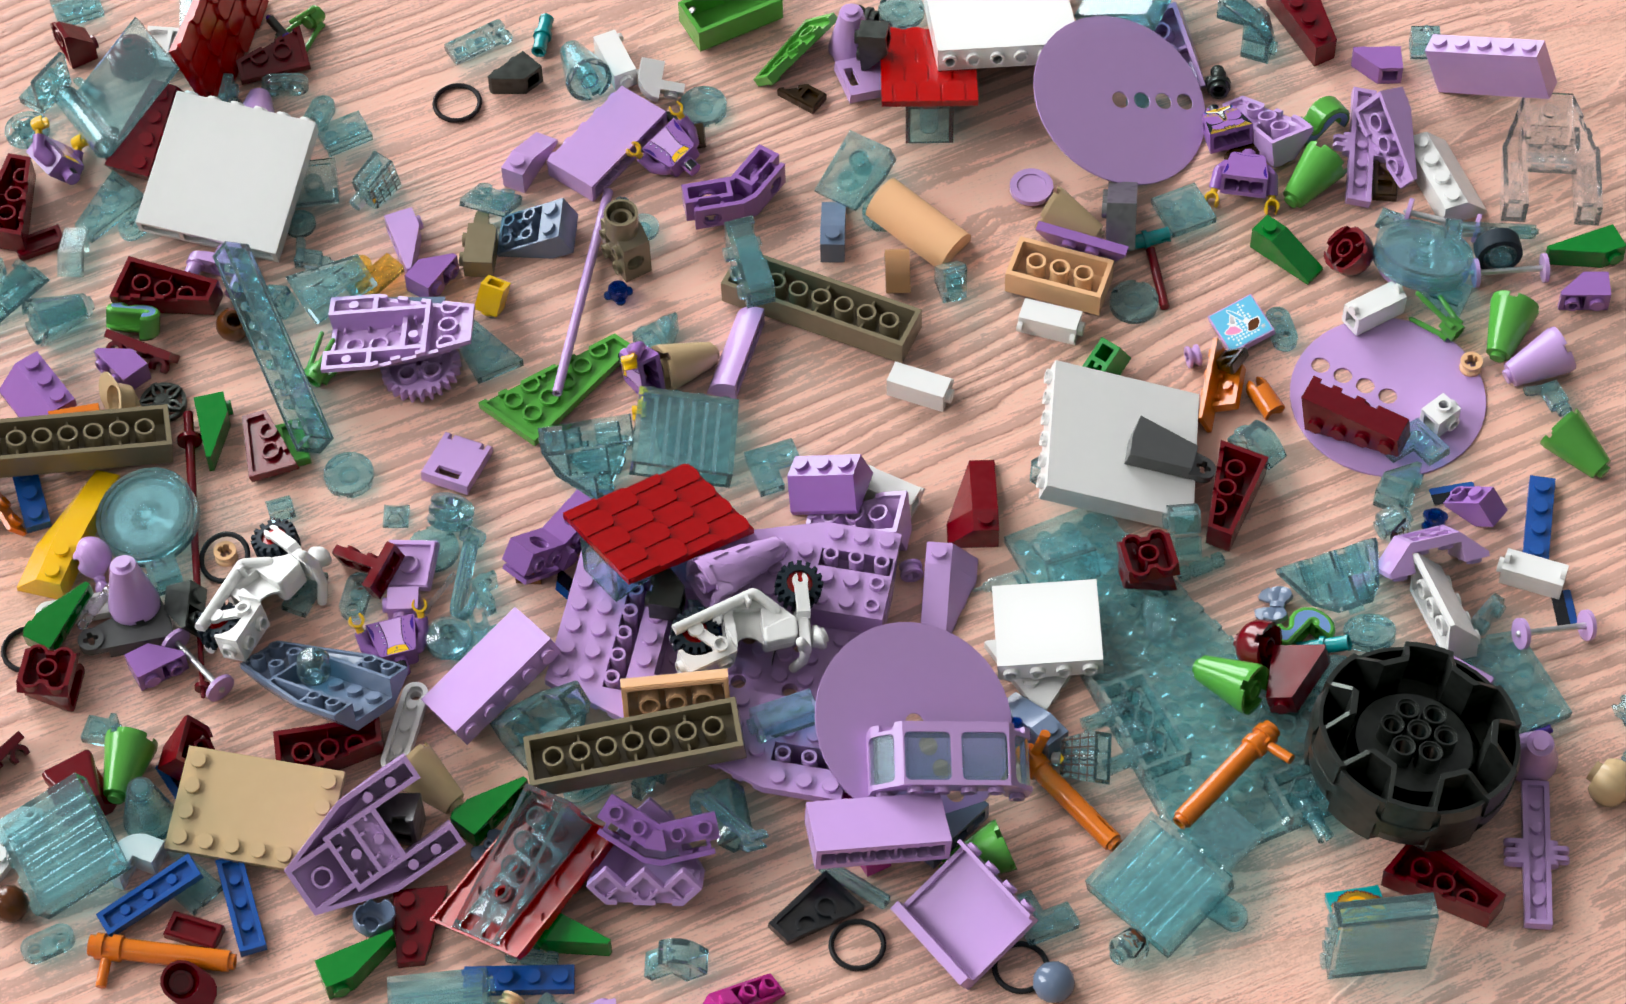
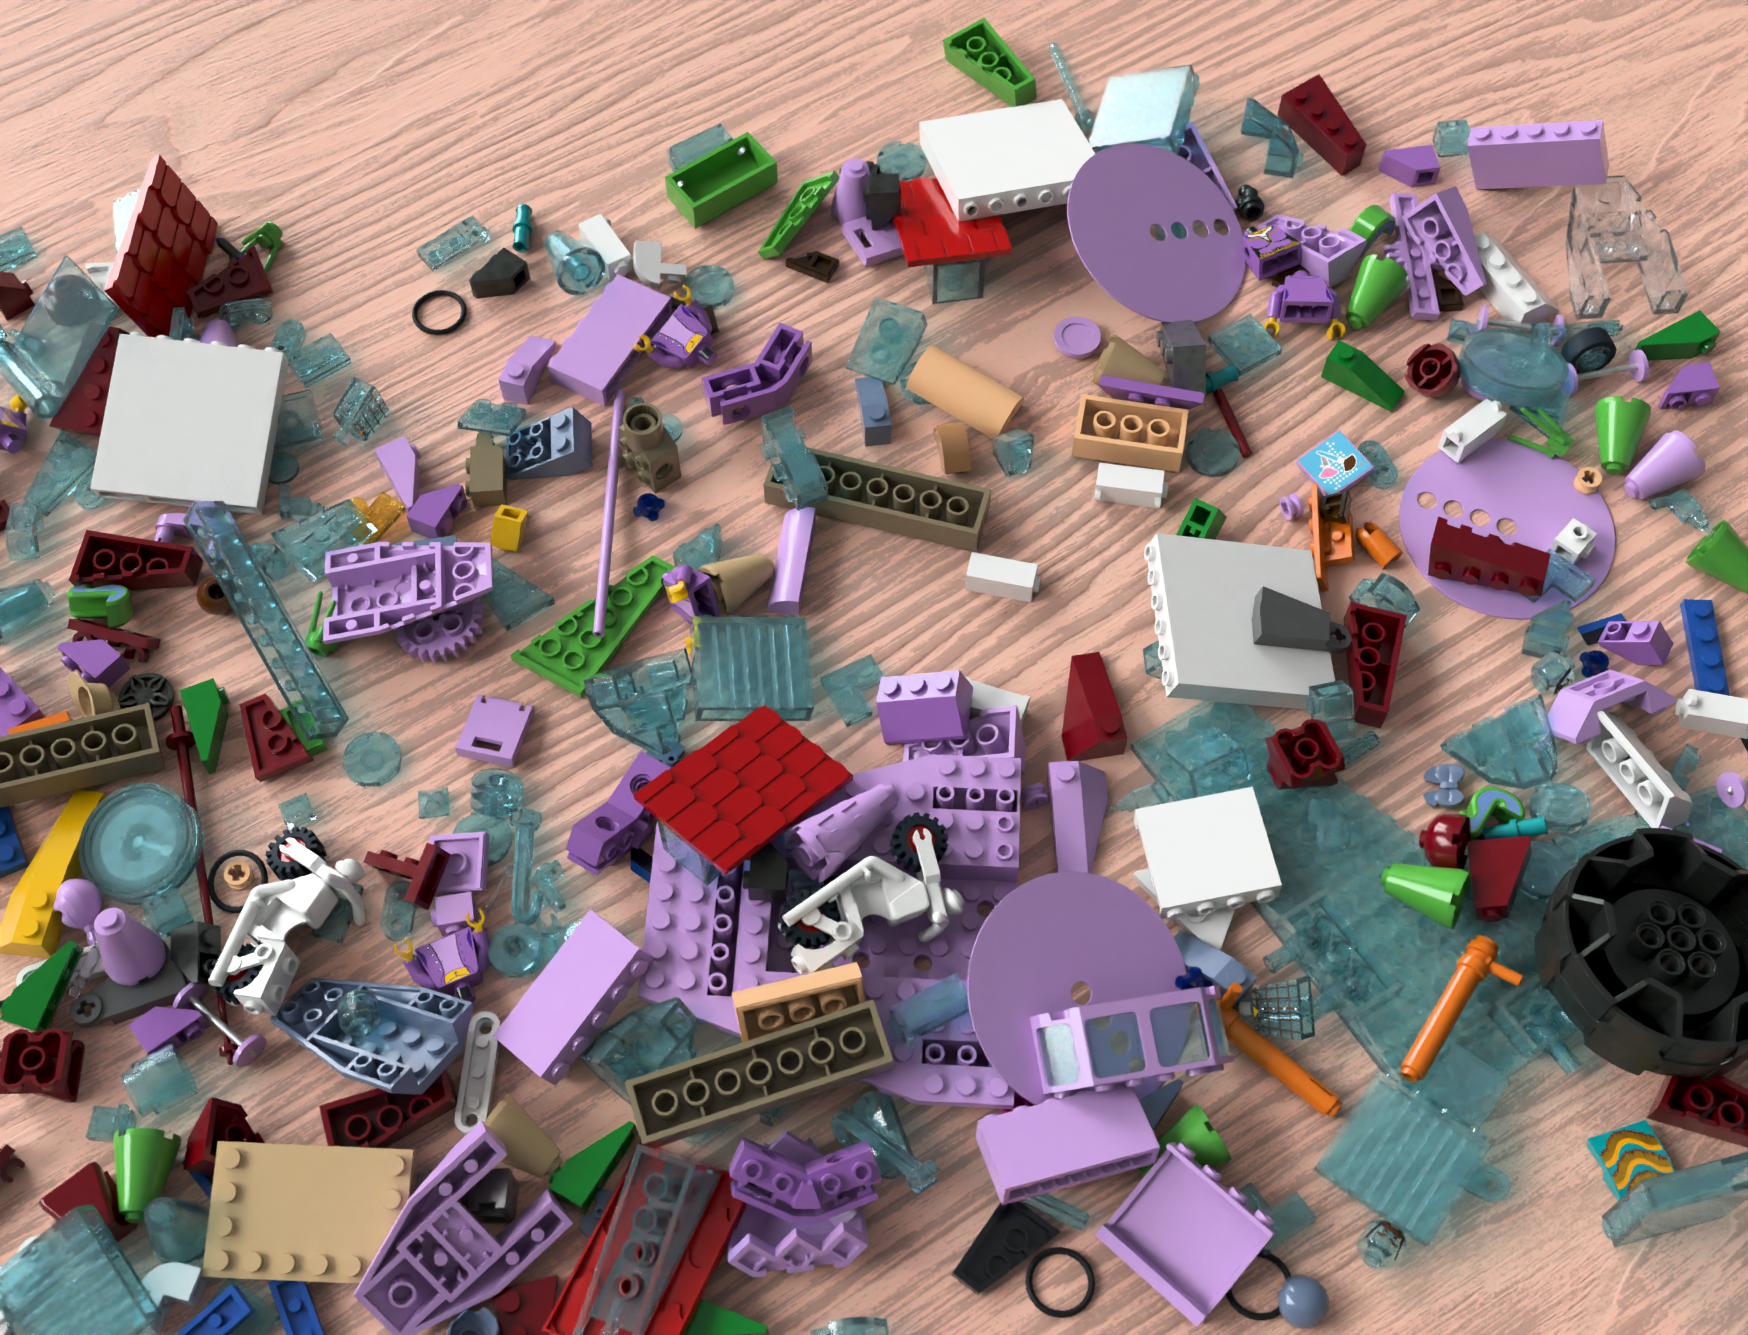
camera: 10 degrees left, 5 degrees up
(145, 700) = (159, 1081): none -> clear light blue piece

